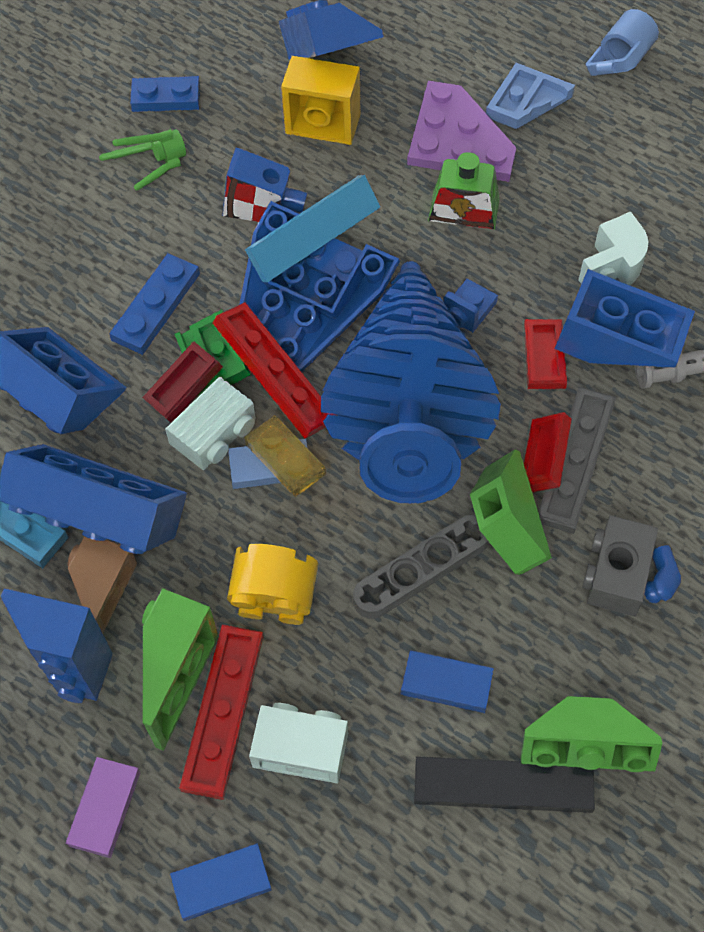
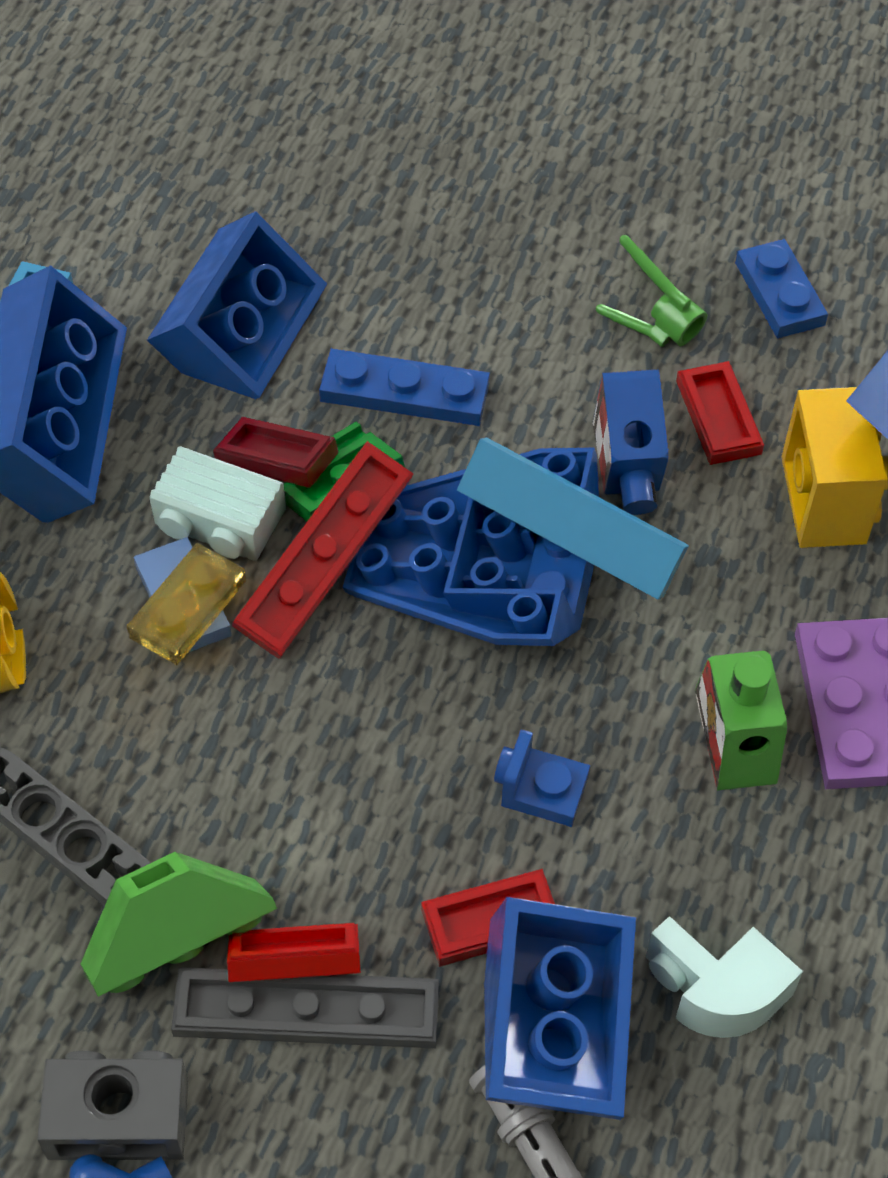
camera: 70 degrees right, 5 degrees down
(223, 147) = (719, 413): none -> red tile
(410, 394) = (326, 703): blue plant -> none

